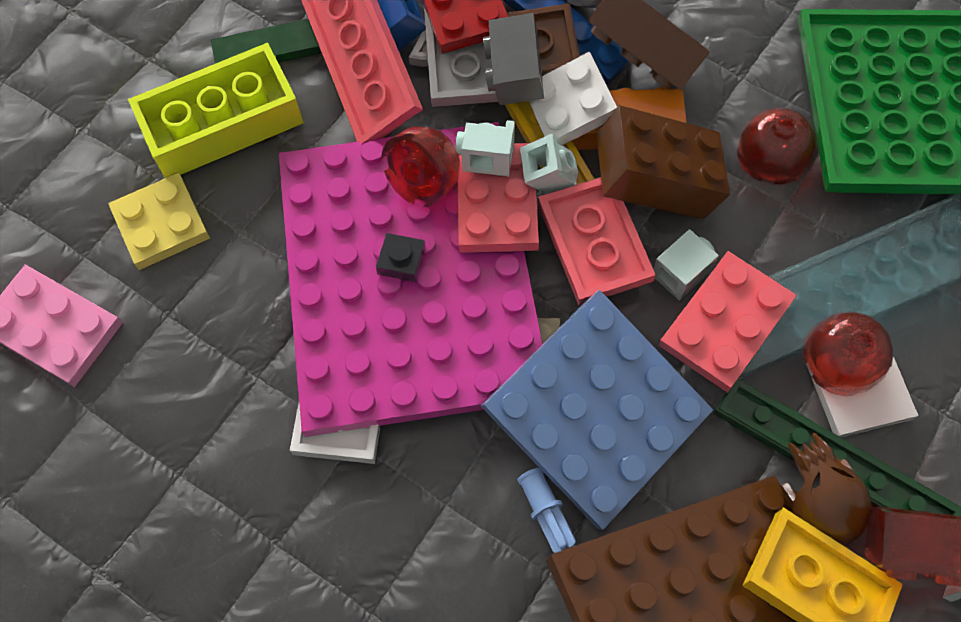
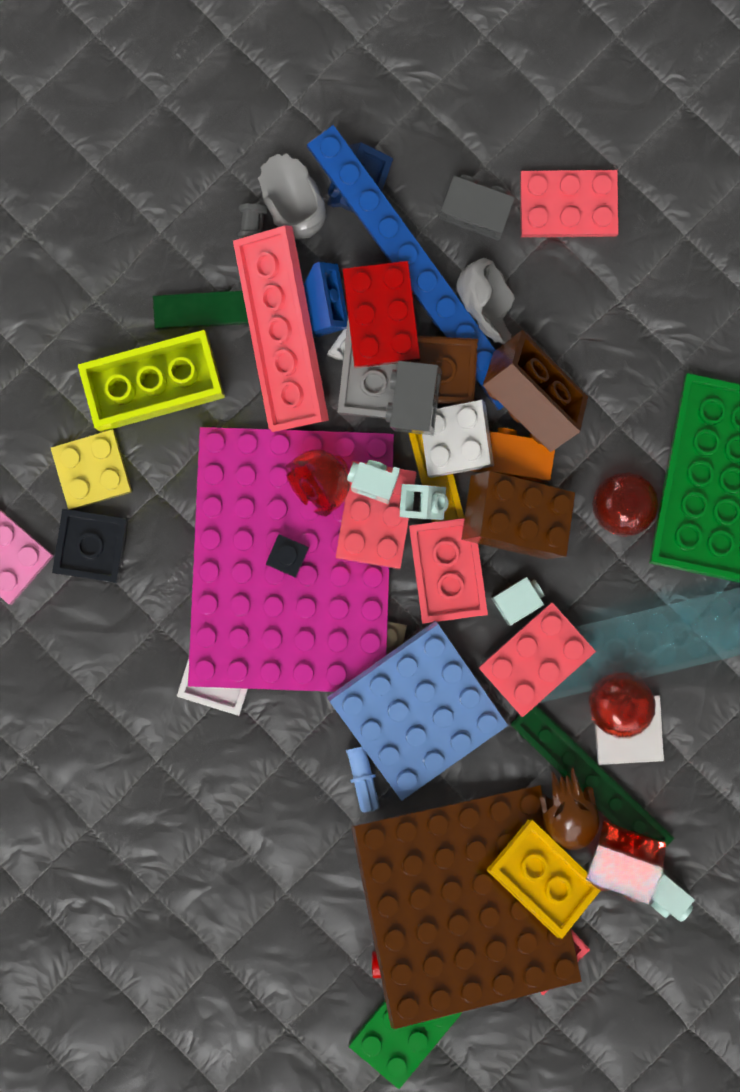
camera: 10 degrees right, 20 degrees up
(163, 299) = (90, 546): none -> black plate

